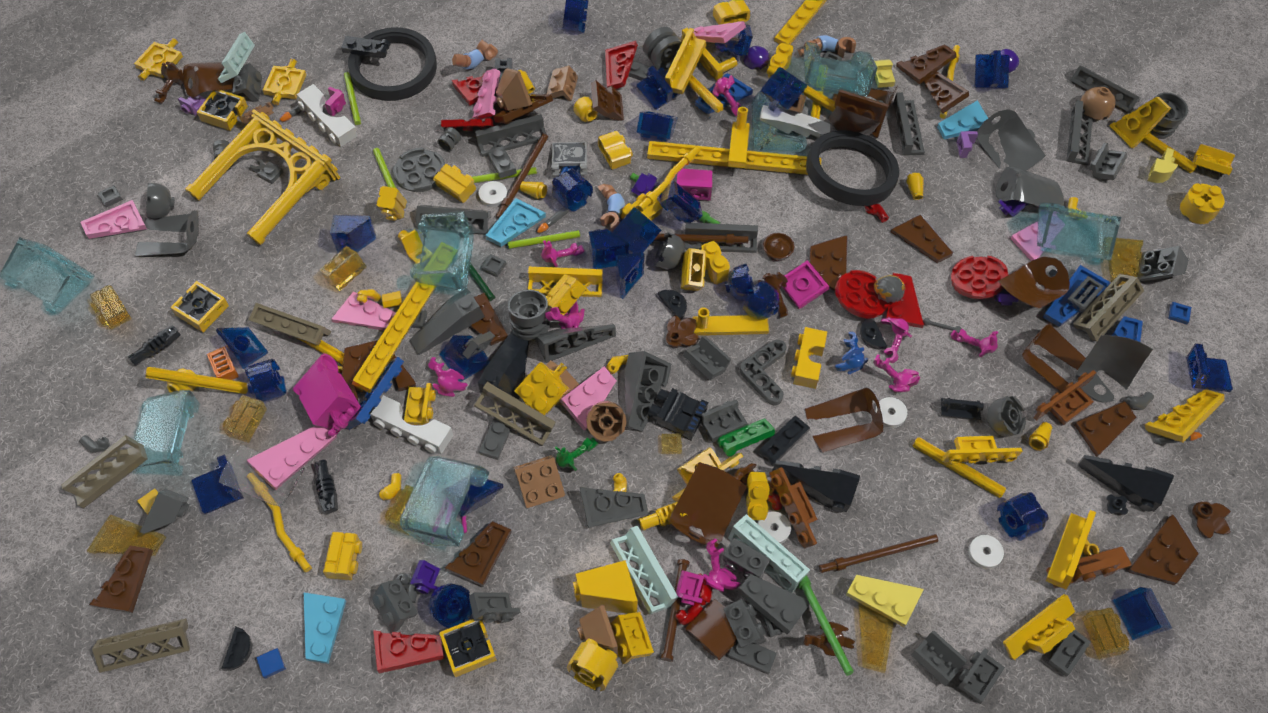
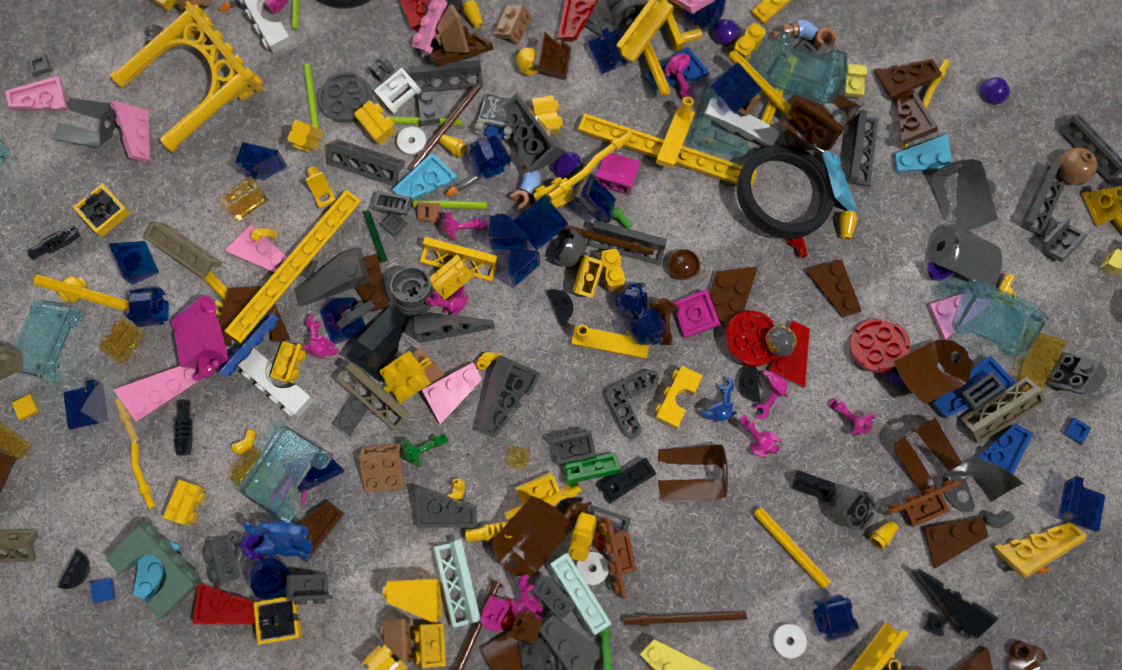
camera: 15 degrees right, 15 degrees up
(110, 307) = (18, 192): clear yellow brick -> none
(158, 201) = (82, 83): dark grey cylinder -> none
(165, 510) = (32, 423): dark grey slope -> none
(220, 231) = (135, 130): none -> bright pink wing
(229, 374) = (115, 290): orange slope -> none
(268, 172) = (195, 68): dark grey plate -> none
(355, 629) = (180, 578): none -> sand green arch
(391, 299) = (286, 241): yellow tile -> none
(444, 251) = (346, 204): clear light blue windscreen -> none
(457, 561) = (282, 539): none -> blue animal
(466, 150) = (394, 86): none -> white plate
(467, 125) = (403, 55): red wing -> none
(478, 242) = (380, 199): none -> dark grey slope
(525, 248) = (429, 212): none -> nougat slope
(606, 421) = (458, 423): medium nougat cylinder -> none
(609, 167) = (534, 140): none -> dark grey wedge
(656, 125) = (597, 94): clear blue slope -> none
(679, 413) = (531, 421): black hips -> none
(684, 330) = (561, 338): reddish brown plate -> none
(687, 617) = (482, 640): red arm -> none
(708, 358) = (576, 376): dark grey bracket -> none
(727, 589) = (526, 627): none -> reddish brown brick
(829, 488) = (656, 545): black wedge -> none
(895, 149) = (838, 181): none -> medium azure wing
(899, 409) = (750, 469): white piece -> none
(926, 321) = (839, 397): dark grey hinge -> none
(965, 142) = (916, 184): medium lavender bracket -> none
(979, 448) = (815, 534): yellow bracket -> none
(991, 70) = (974, 101): clear blue bracket -> none

